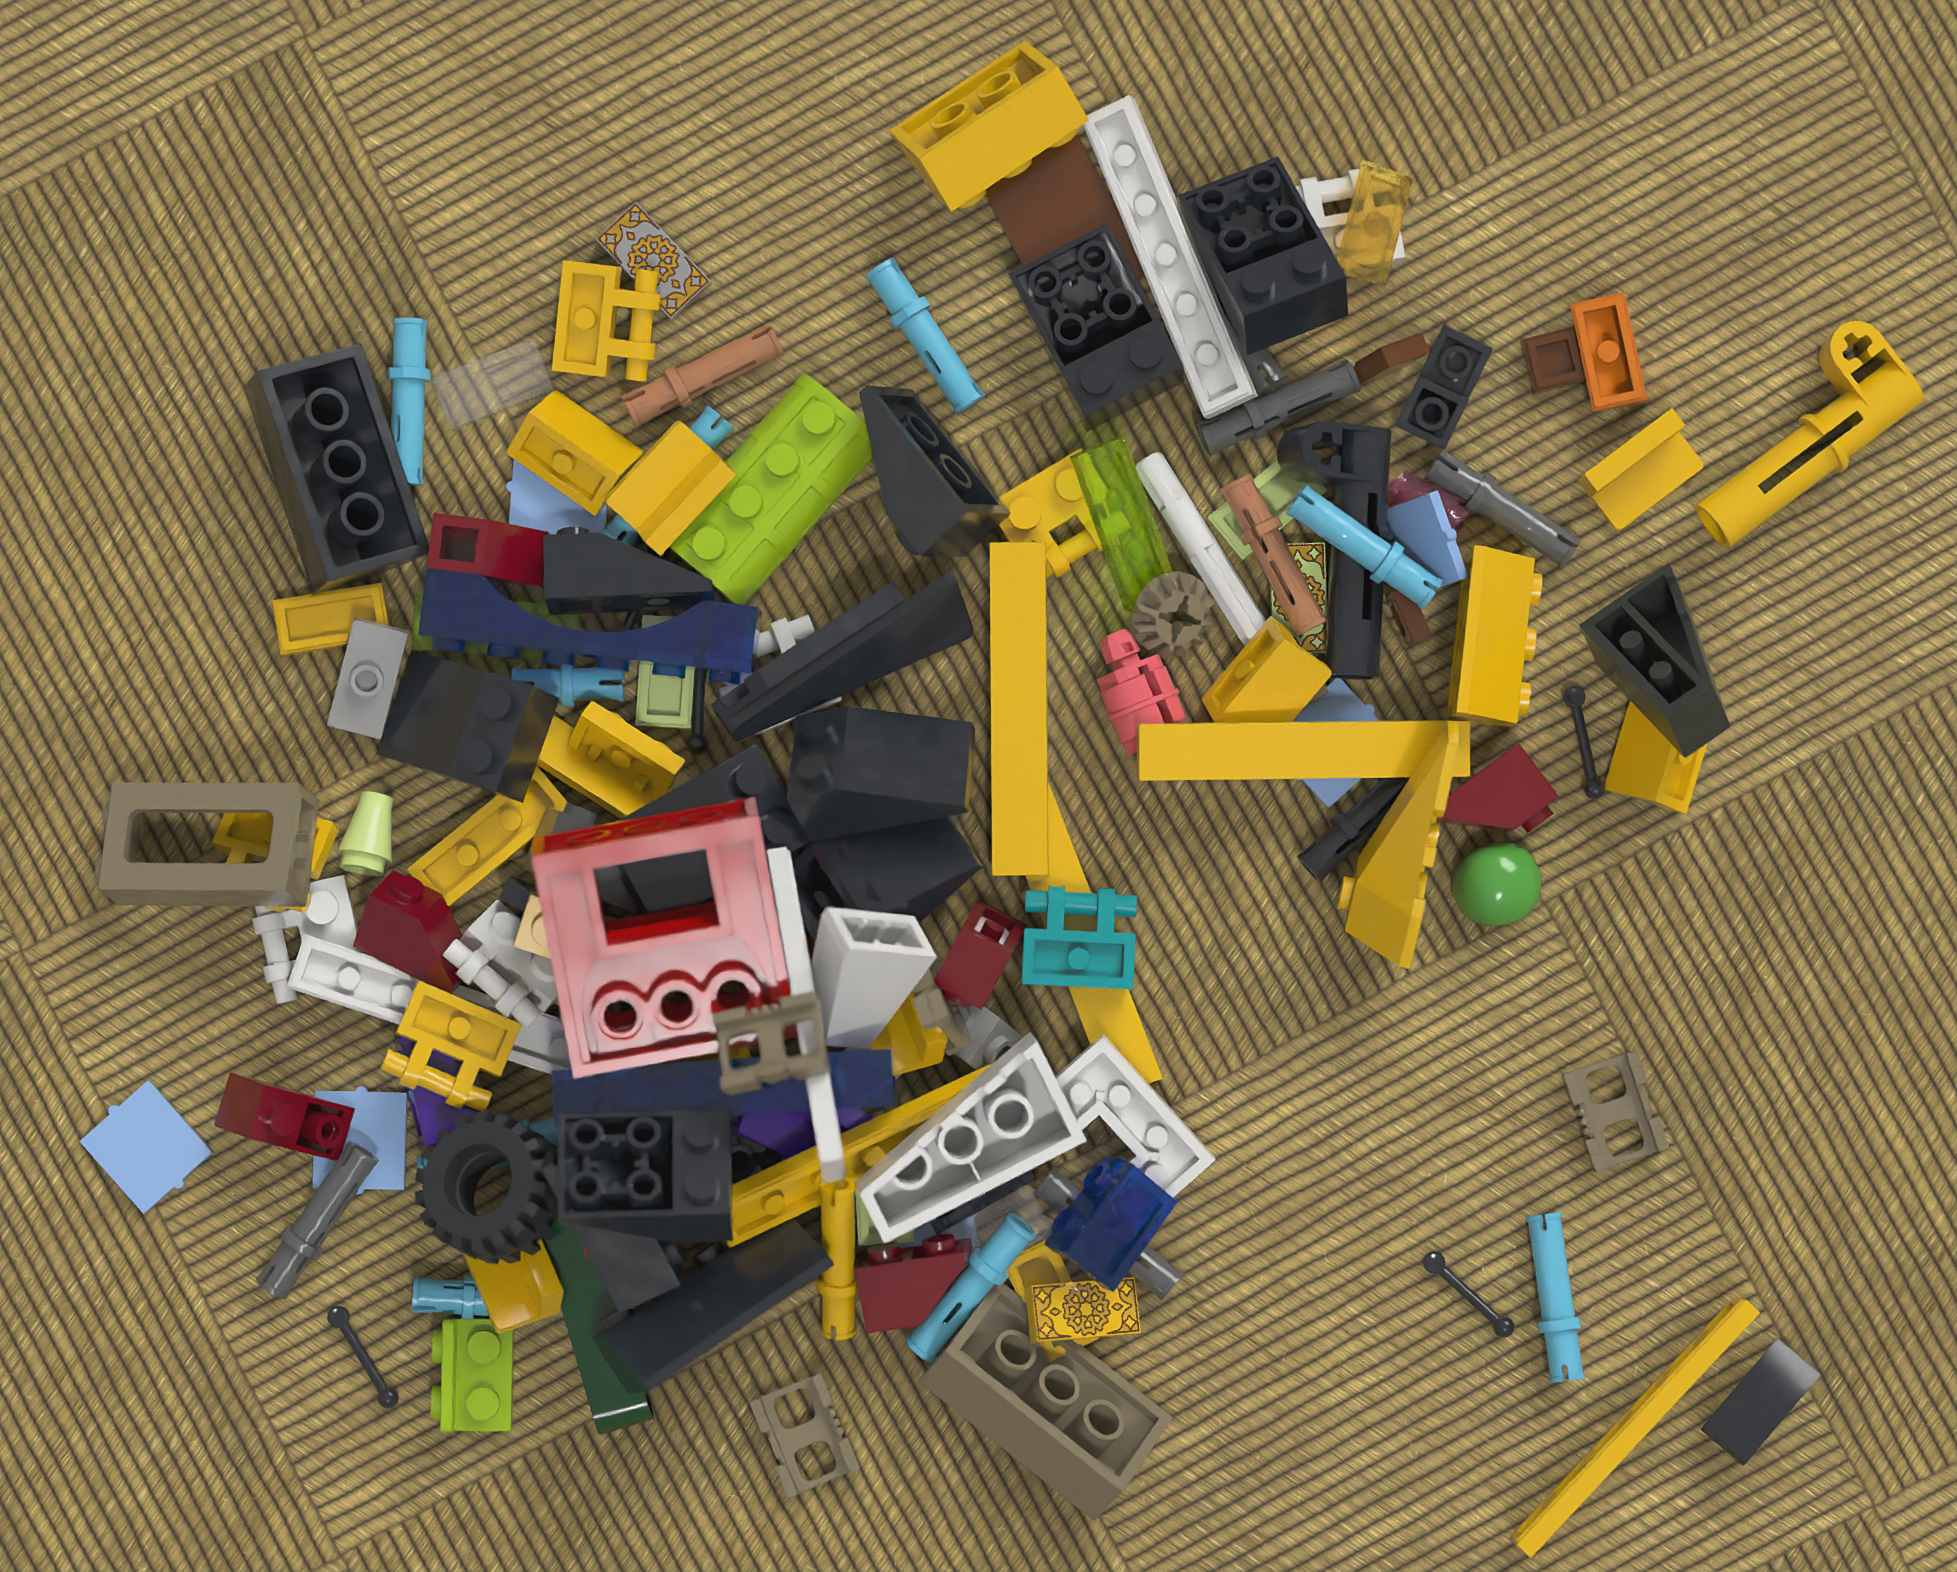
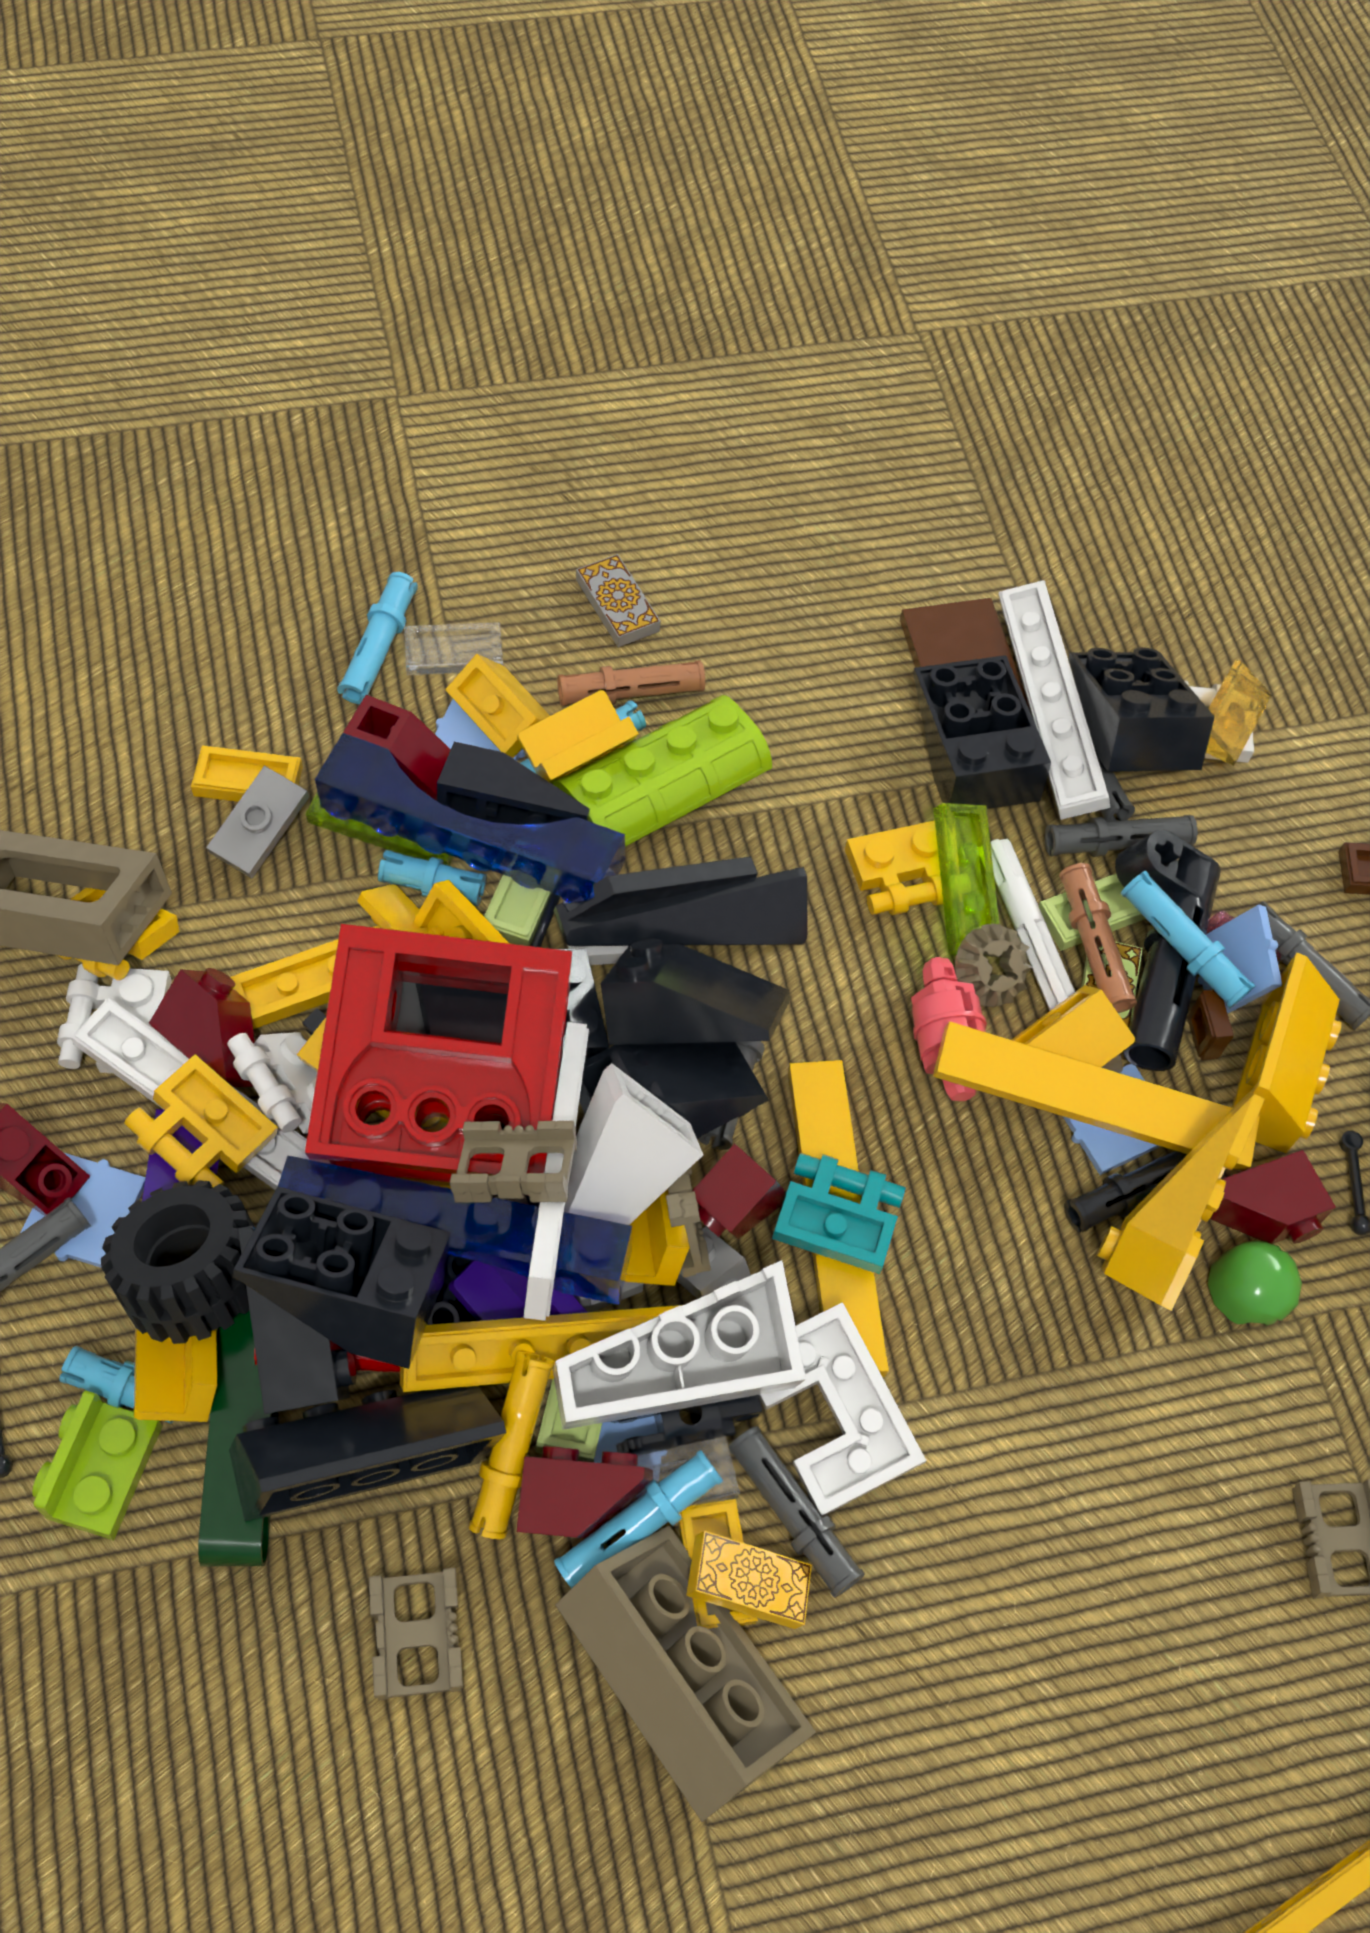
camera: 15 degrees right, 25 degrees down
(336, 468) = (296, 658): black slope -> none
(368, 837) = (204, 943): yellowish green cone -> none
(468, 725) = (336, 871): black slope -> none
(589, 315) = (550, 615): yellow plate -> none
(925, 336) = (821, 688): medium azure pin -> none
(925, 477) = (804, 801): black slope -> none
(990, 126) = (927, 571): yellow slope -> none
(1019, 709) = (832, 1004): yellow tile -> none
(1110, 1221) = (805, 1487): clear blue bracket -> none
(1391, 358) = (1230, 819): reddish brown tile -> none
(1435, 1263) = (1130, 1647): black hinge -> none
(1444, 386) = (1270, 859): black slope -> none
(1555, 1298) = (1258, 1722): medium azure pin -> none

